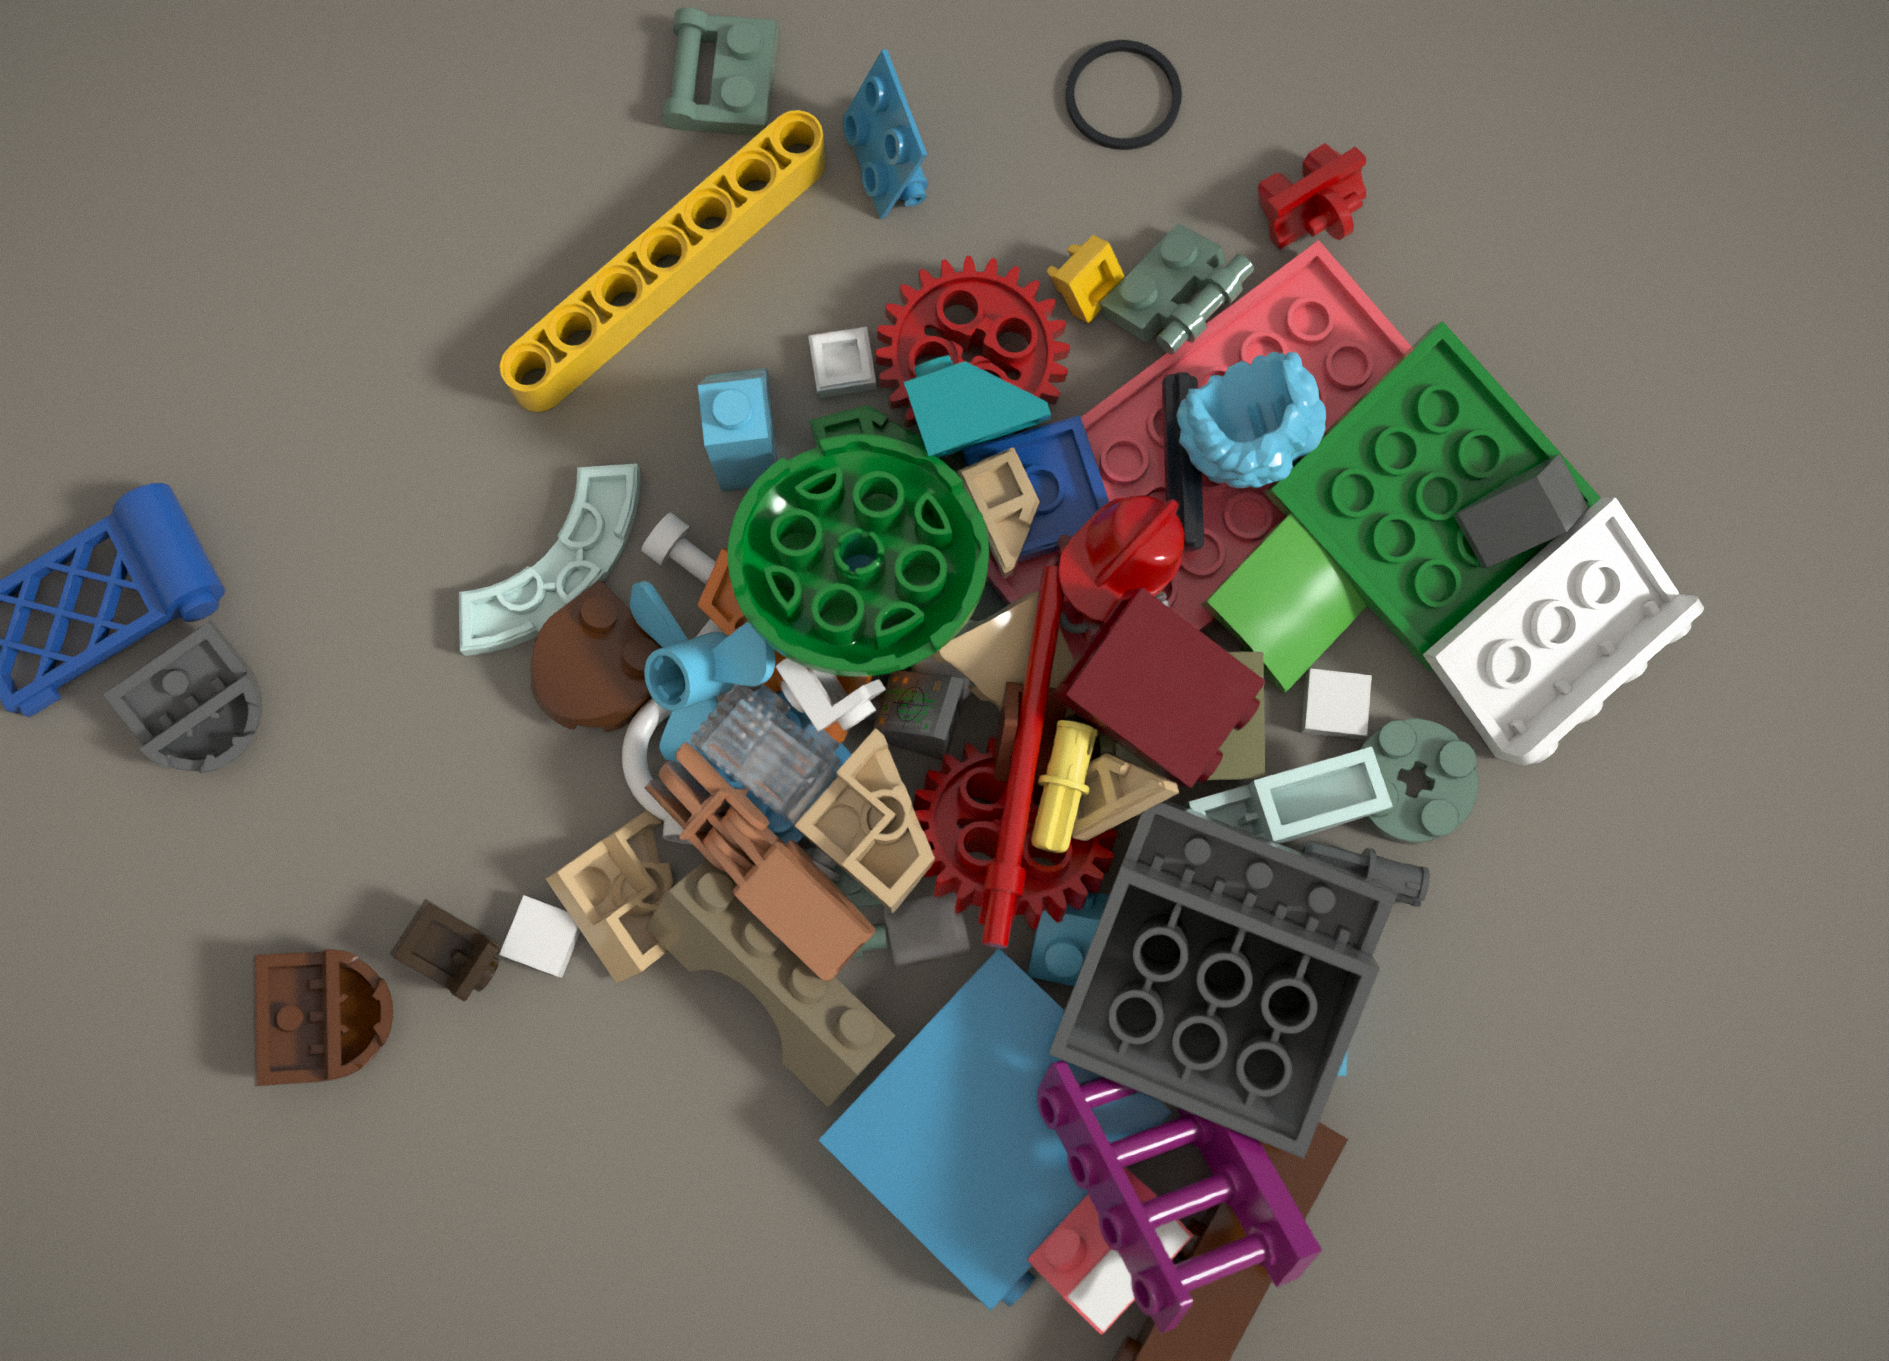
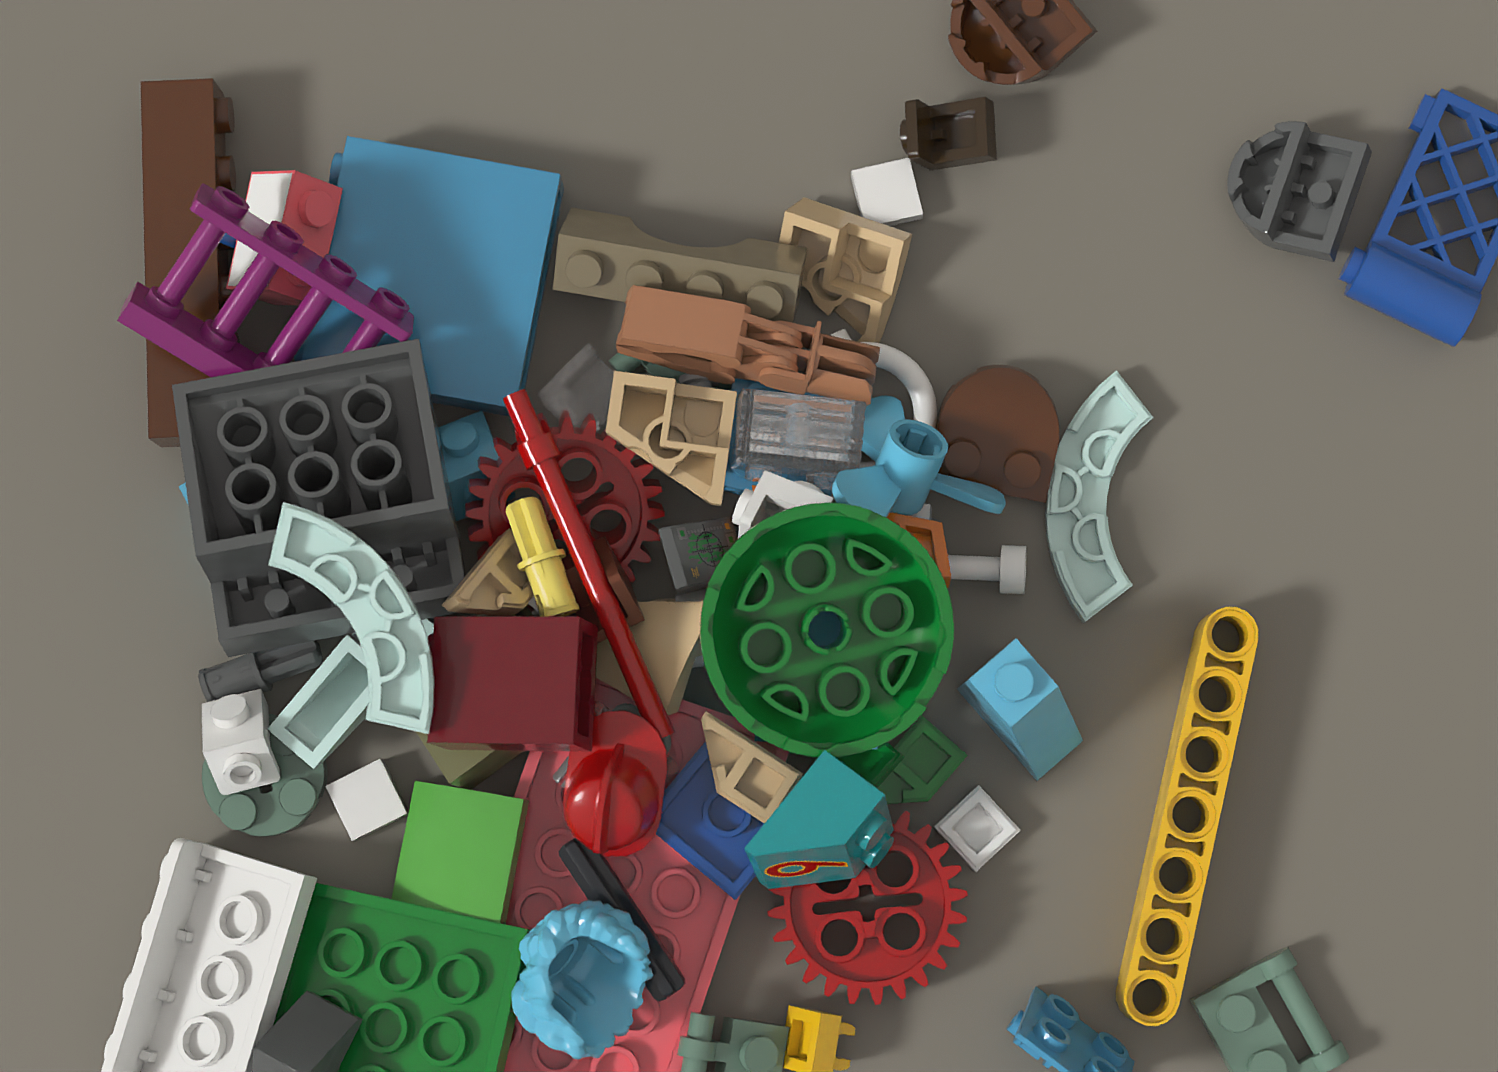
camera: 145 degrees right, 5 degrees up
(1241, 824) = (375, 605): none -> light aqua tile
(1423, 815) = (238, 742): none -> white bracket

